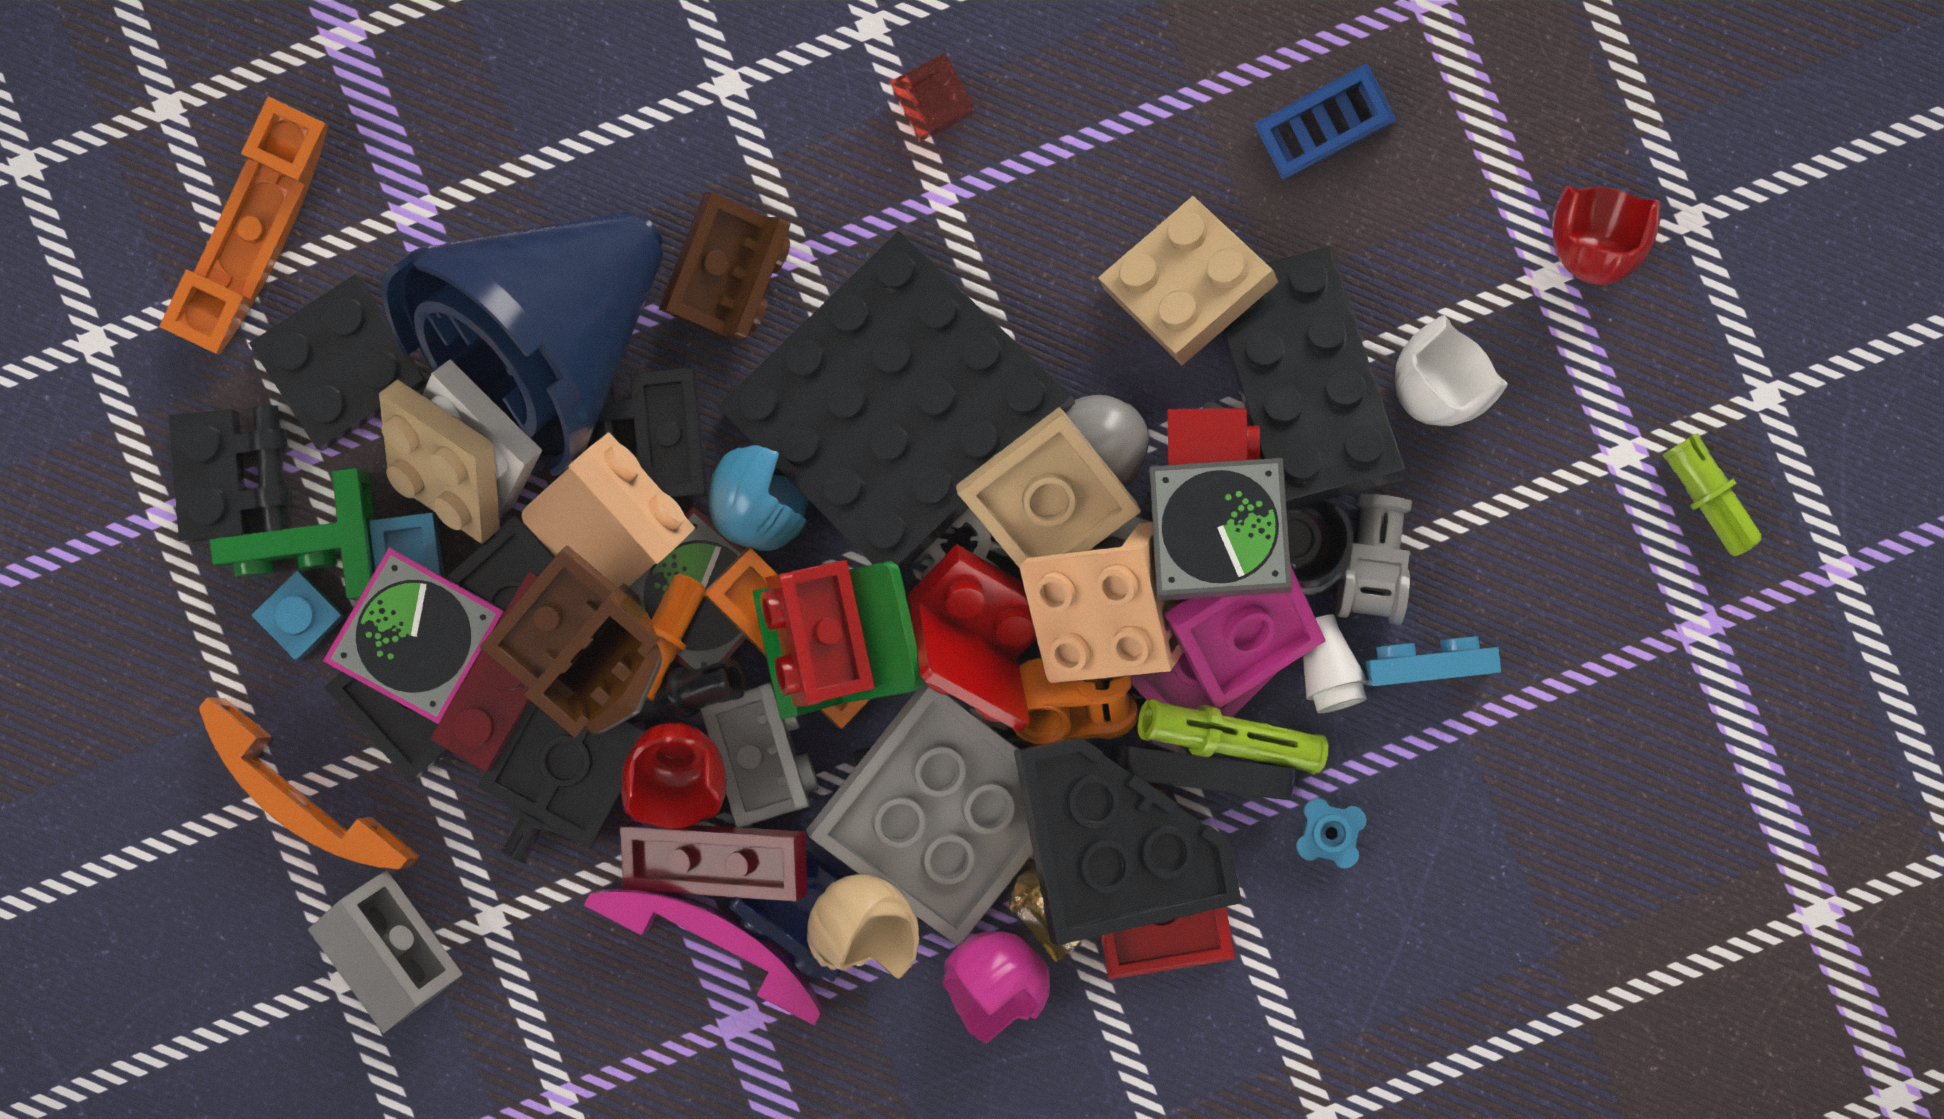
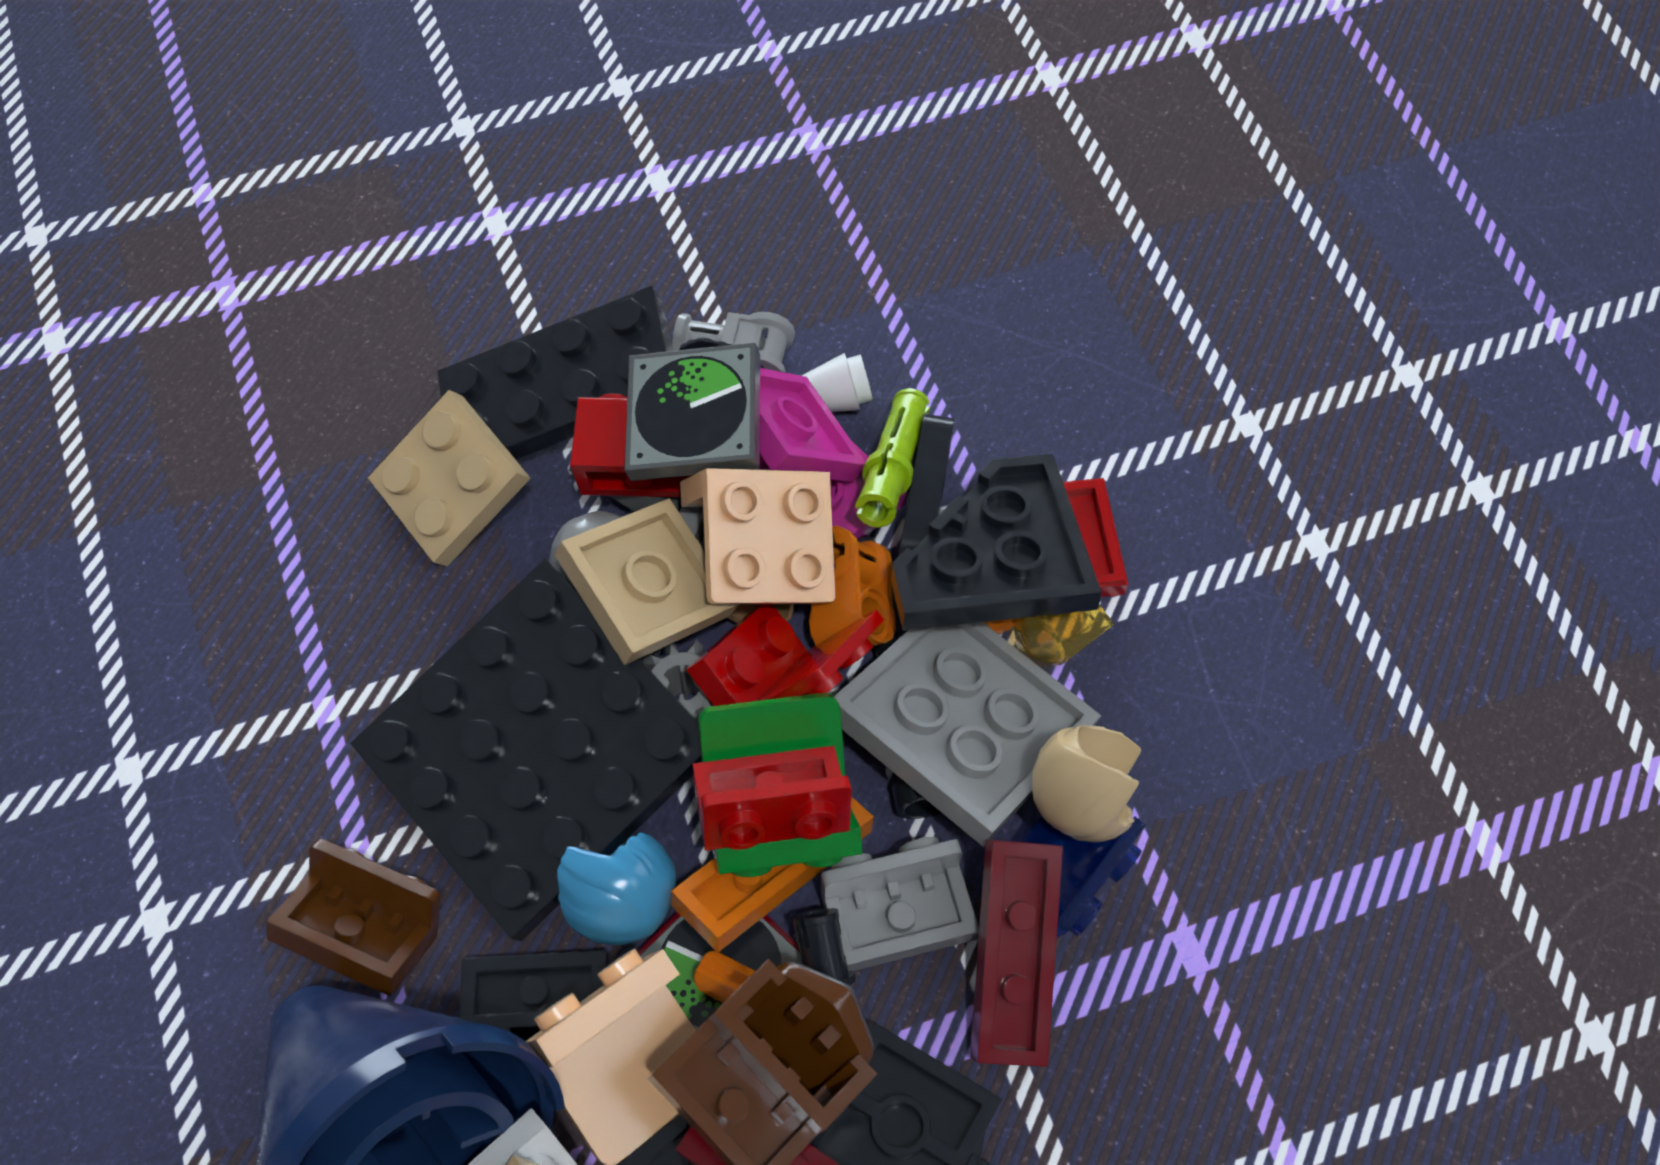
camera: 90 degrees left, 25 degrees down
(673, 777) = (922, 986): red hair -> none
(784, 983) = (1071, 1039): dark pink slope -> none
(932, 97) = (216, 704): clear red plate -> none
(996, 981) = (1133, 679): dark pink hair -> none
(1316, 844) = (979, 410): dark azure plate -> none
(1374, 97) = (306, 330): blue slope -> none
(1445, 376) = (572, 280): white hair -> none
(1457, 659) = (829, 291): dark azure plate -> none
(1603, 232) = (464, 164): red hair -> none
(1713, 495) = (698, 114): lime axle -> none

